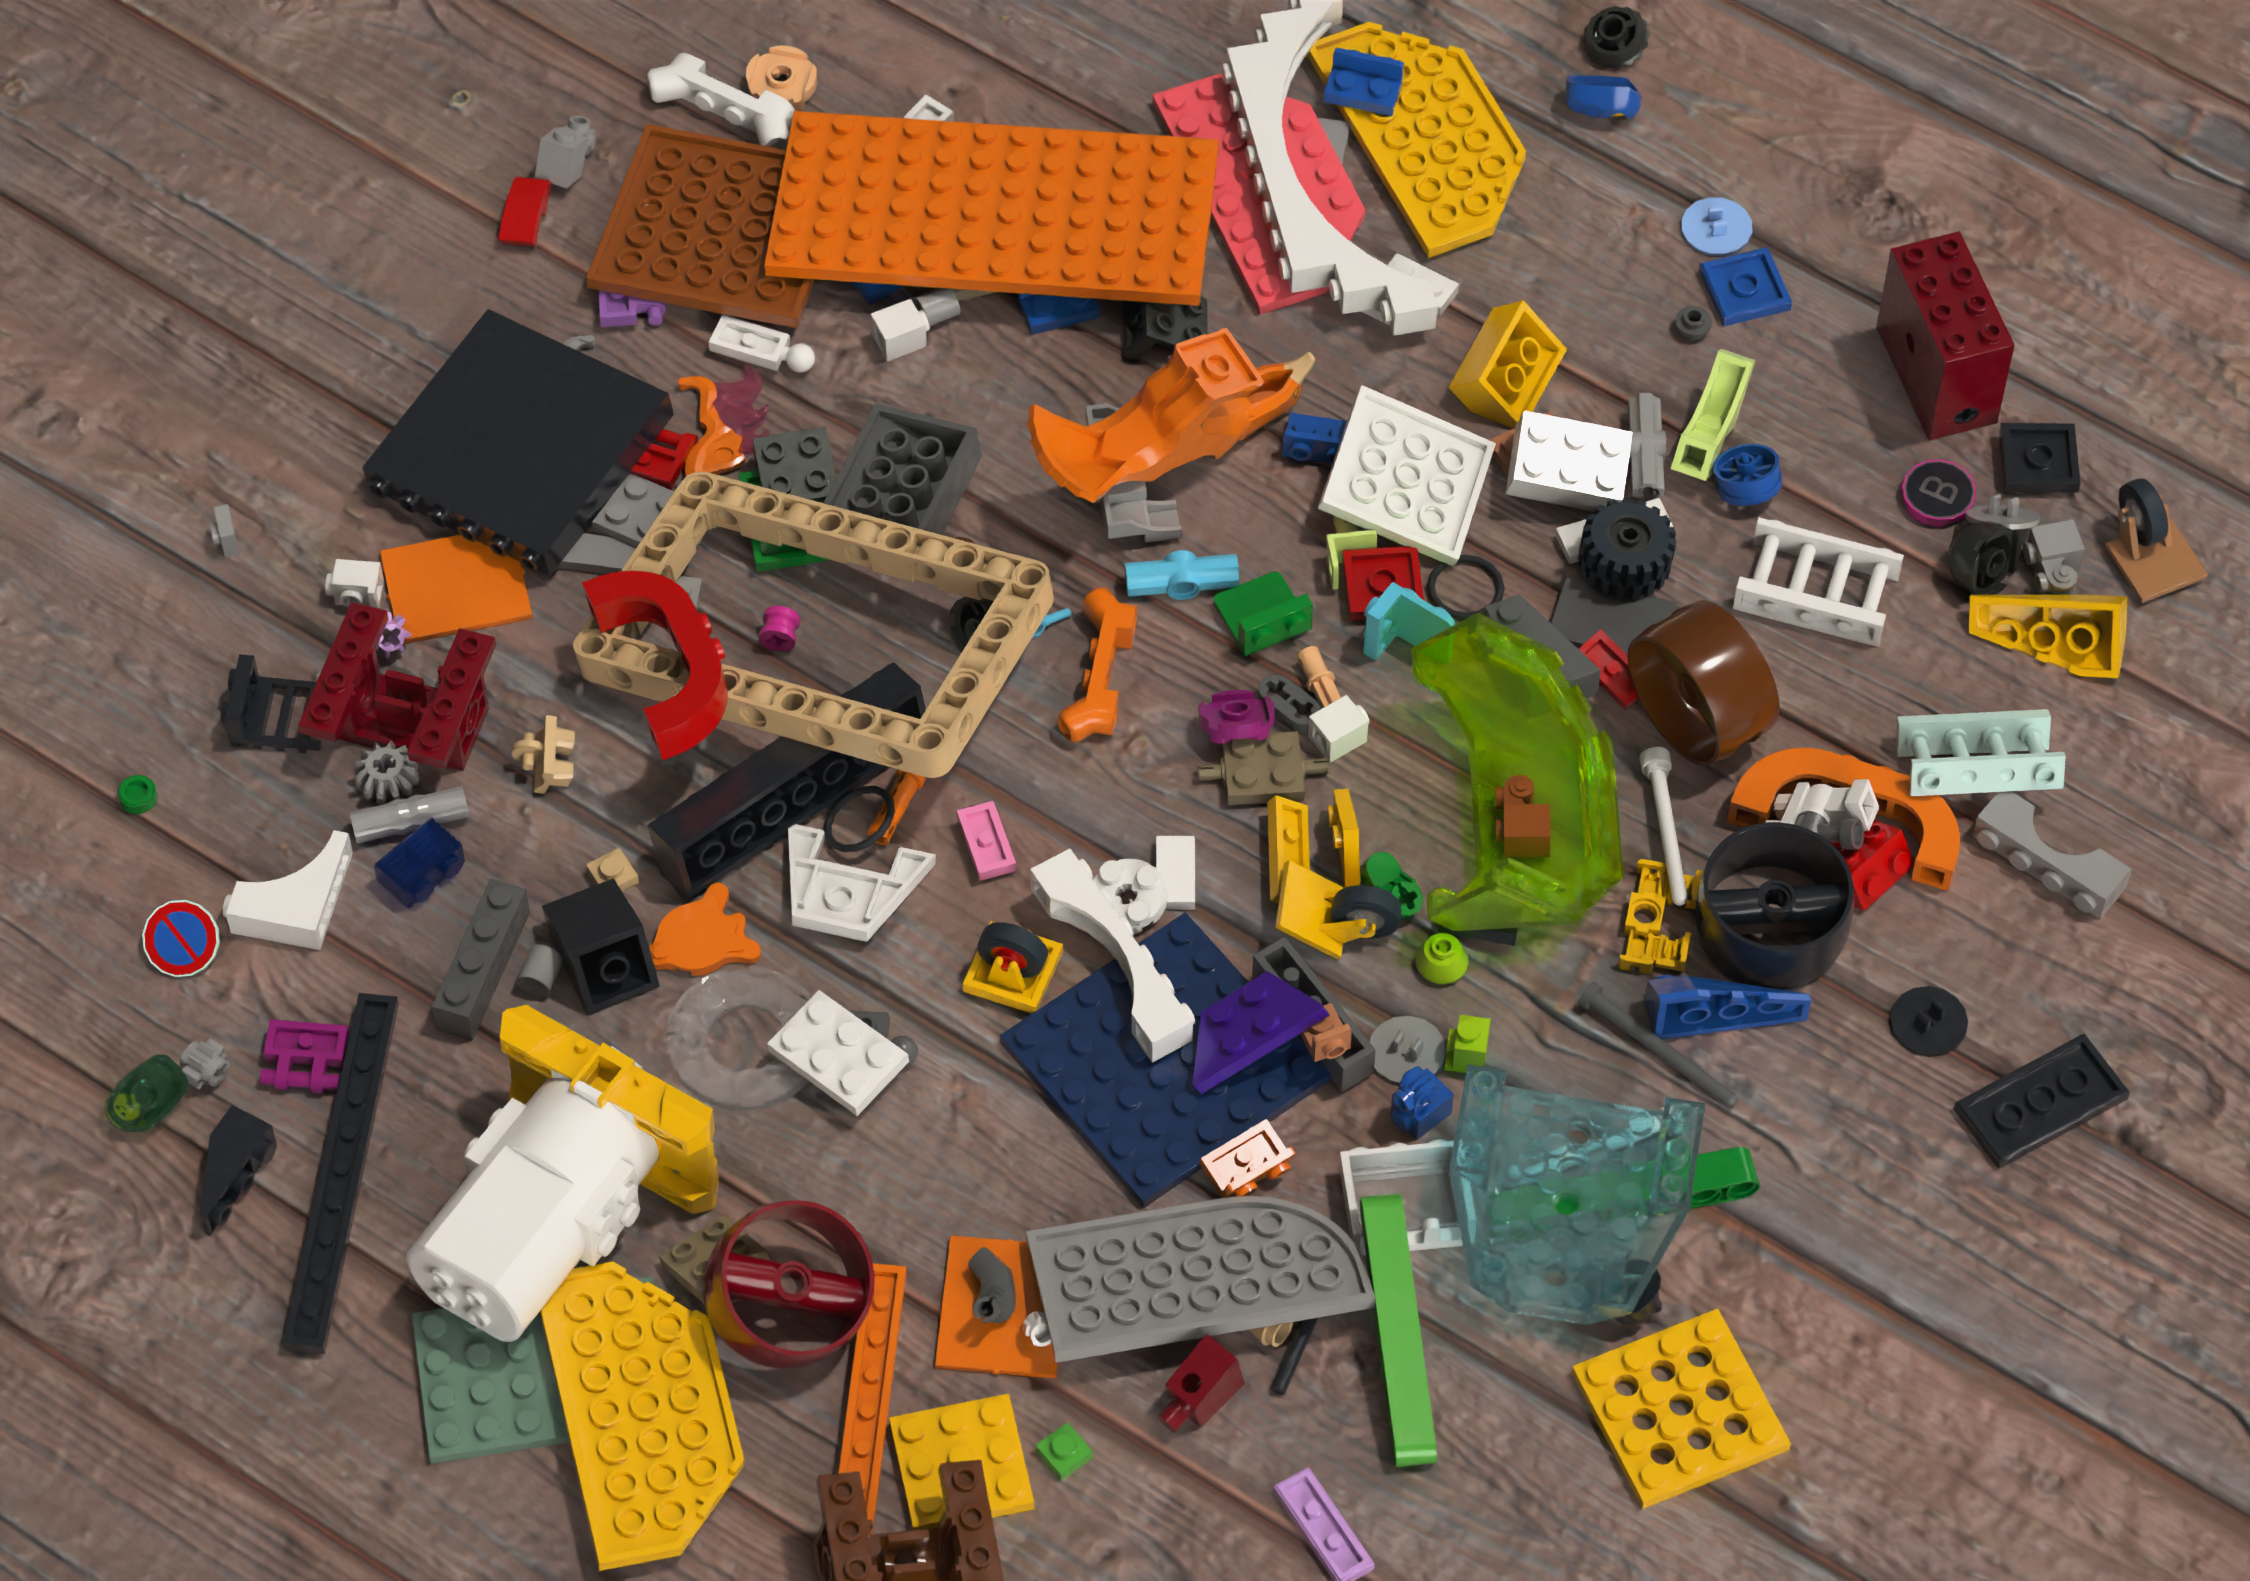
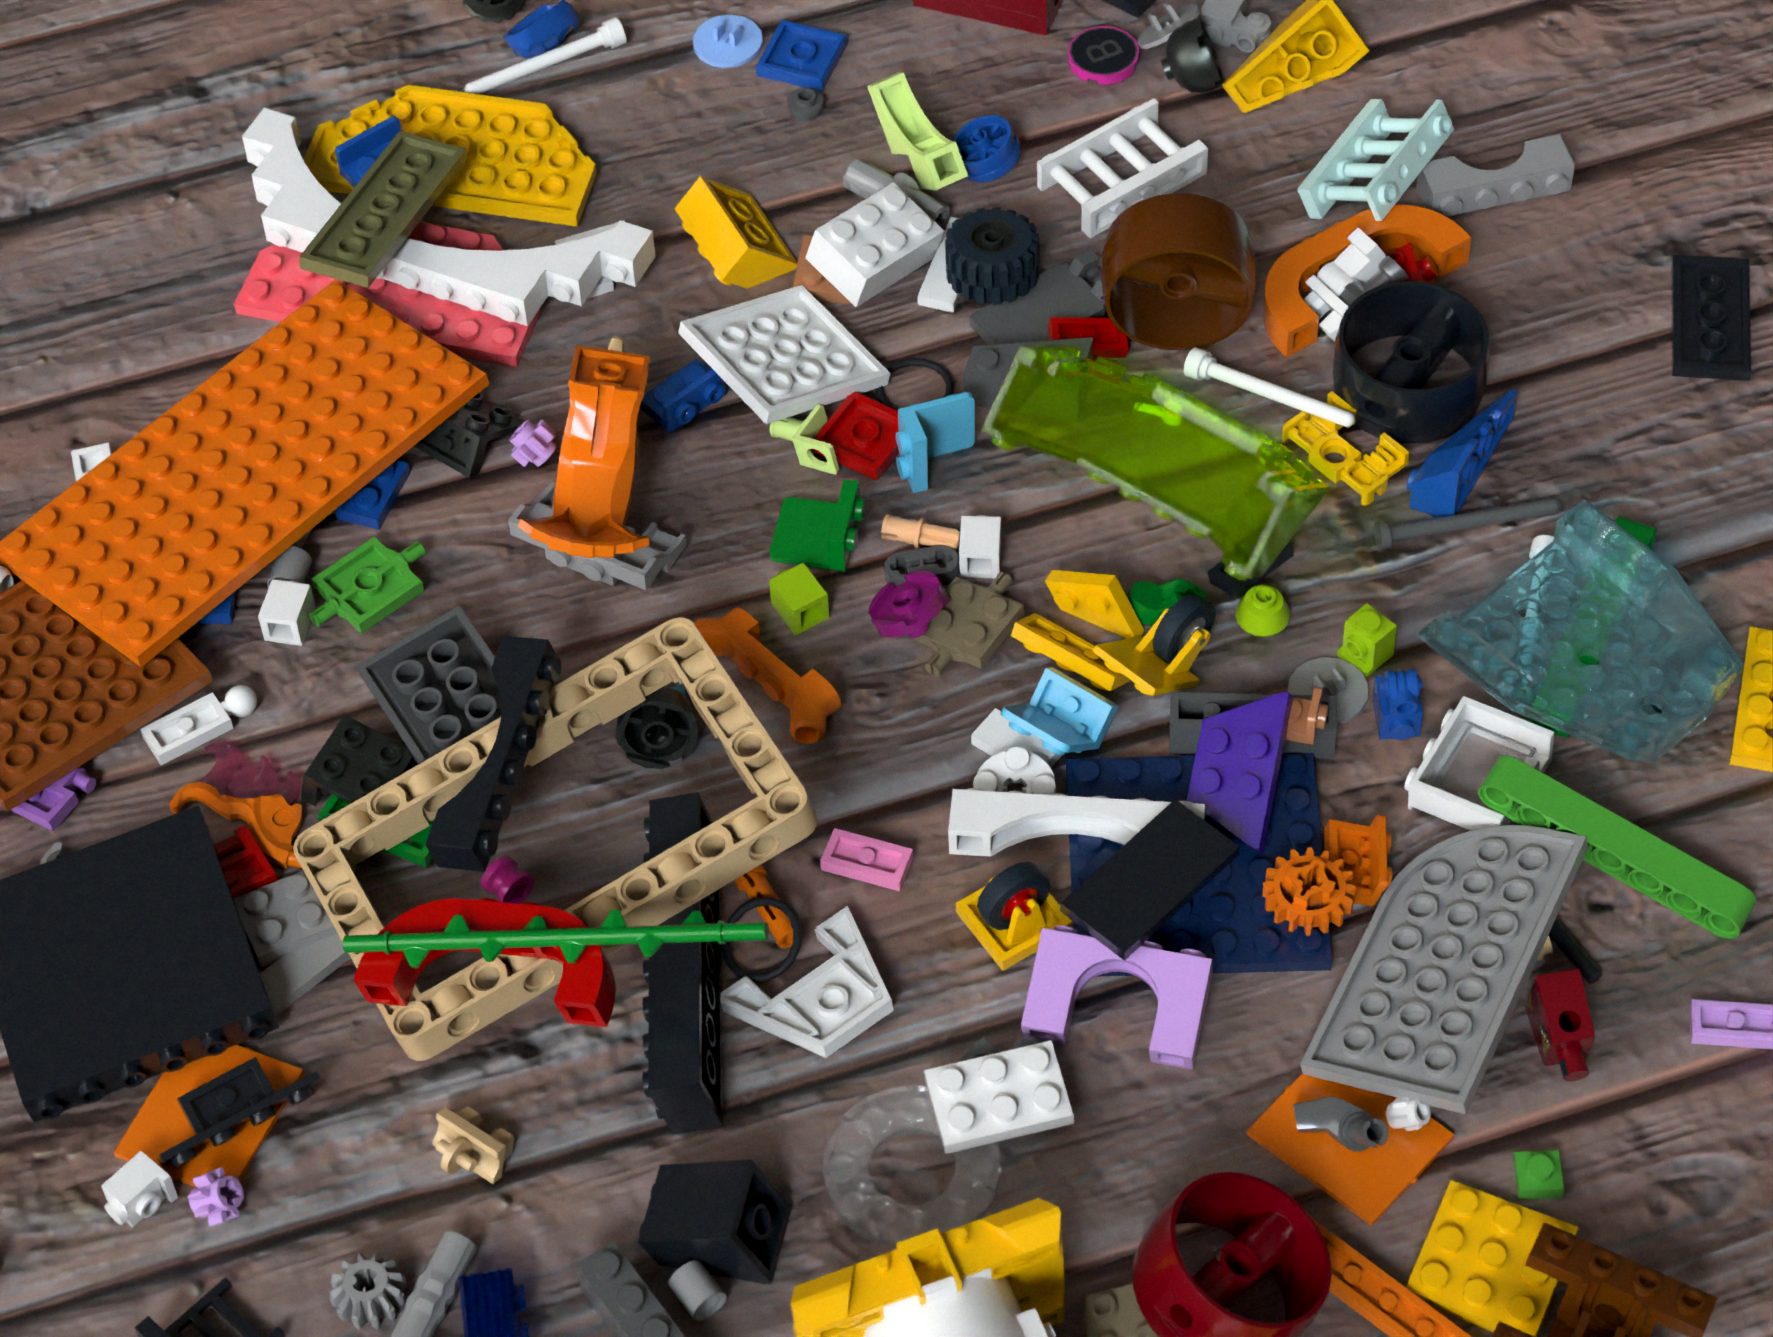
camera: 50 degrees left, 5 degrees down
(366, 707) = (302, 1247): dark red piece -> none
(461, 587) = (230, 1102): none -> black bracket
(612, 866) = (638, 1169): tan plate -> none
(695, 684) = (571, 940): none -> green plant
(702, 937) = (776, 1134): orange tile -> none
(771, 561) = (469, 823): none -> black arch
(967, 362) = (367, 584): none -> bright green plate
(1026, 1107) = (1071, 960): none -> lavender arch
(1088, 1025) = (1149, 879): none -> black tile
(1176, 1159) = (1309, 891): none -> orange gear
(1181, 575) = (728, 563): medium azure piece -> none
(1186, 642) = (799, 598): none -> lime brick
(1212, 885) = (1063, 714): none -> medium azure bracket
(1295, 119) = (383, 209): none -> olive plate
(1525, 824) = (1190, 480): dark orange brick -> none
(1642, 143) = (609, 34): none -> white piece
(1929, 1021) = (1579, 343): black piece -> none

